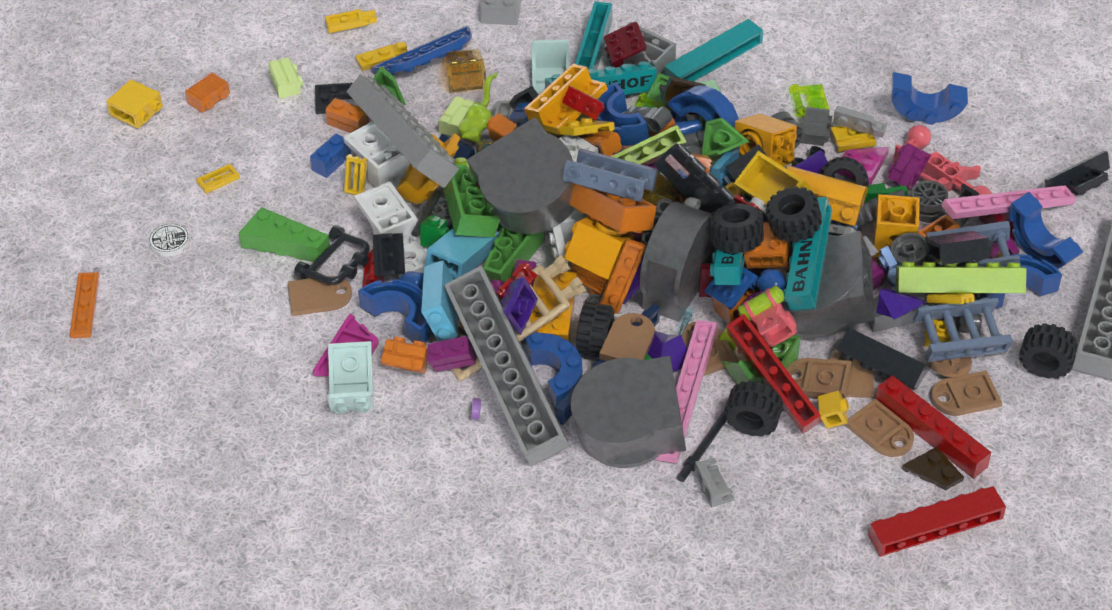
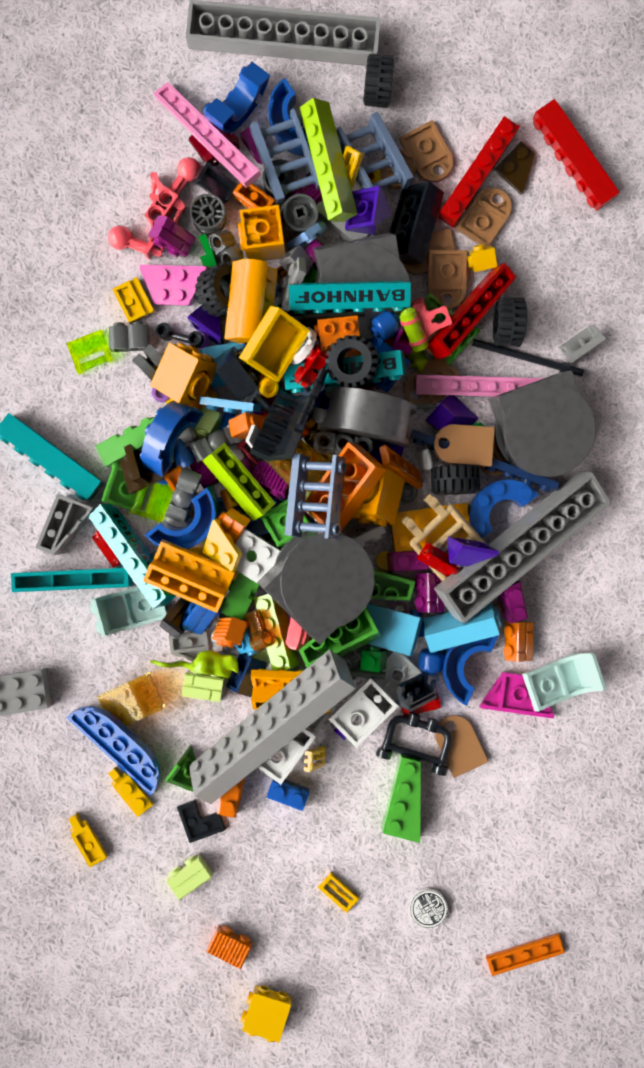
camera: 105 degrees left, 40 degrees up
(476, 408) = (556, 563): medium lavender tile -> none
(583, 103) = (201, 546): red hinge -> none
(624, 44) = (70, 544): dark red bracket -> none
(720, 138) = (205, 413): bright green slope -> none
(793, 214) = (343, 306): black tyre -> none
(858, 121) = (124, 291): light grey hinge -> none
(924, 106) = (77, 232): blue brick -> none
(957, 247) = (306, 161): black brick -> none
(1083, 175) = (140, 78): black bracket -> none

